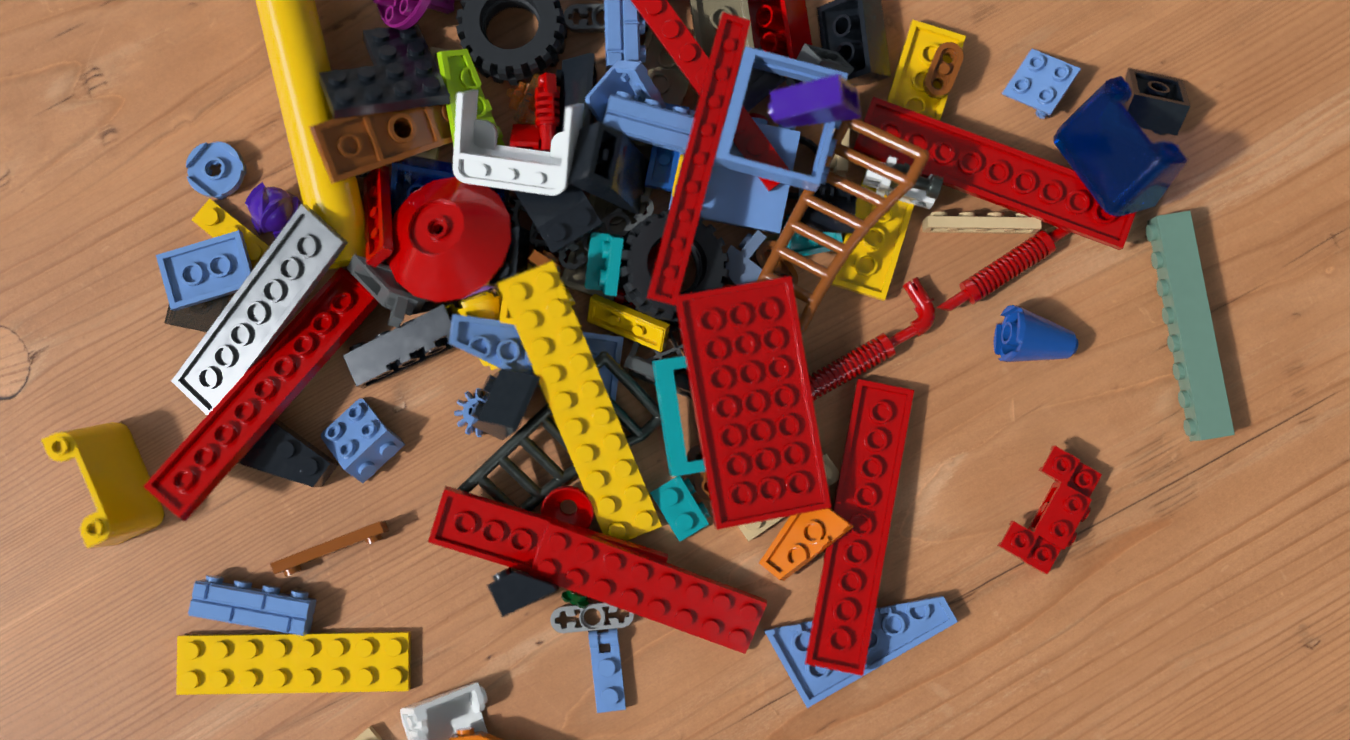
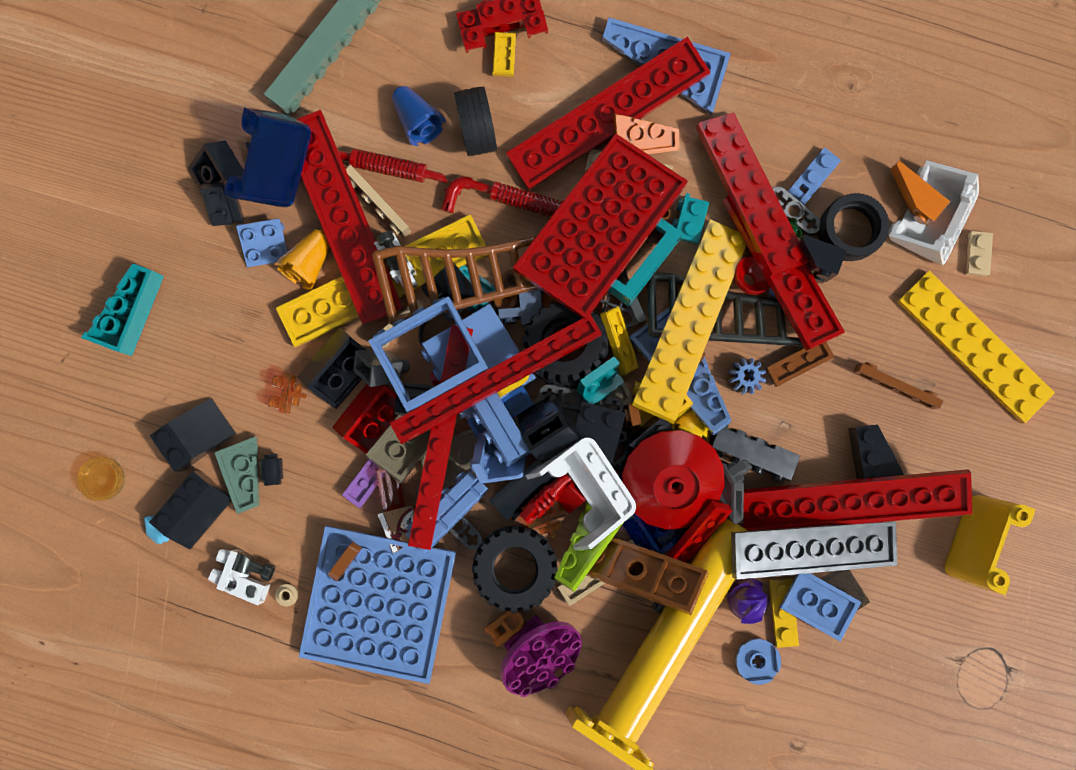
camera: 130 degrees left, 0 degrees up
(252, 606) = (969, 397): medium blue brick -> none
(361, 441) = (825, 427): medium blue bracket -> none
(400, 79) = (614, 596): black plate -> none
(443, 472) = (798, 364): none -> dark orange plate
(504, 402) = (731, 361): black slope -> none
(508, 690) = (871, 209): none -> black tyre
(815, 102) = (406, 339): dark purple slope -> none
(942, 71) = (309, 299): dark orange plate -> none
(972, 383) = (475, 121): none -> black tyre
(987, 104) = (305, 259): none -> light orange cone
(1015, 483) = (504, 54): none -> yellow plate
(1113, 65) = (221, 208): none -> black plate

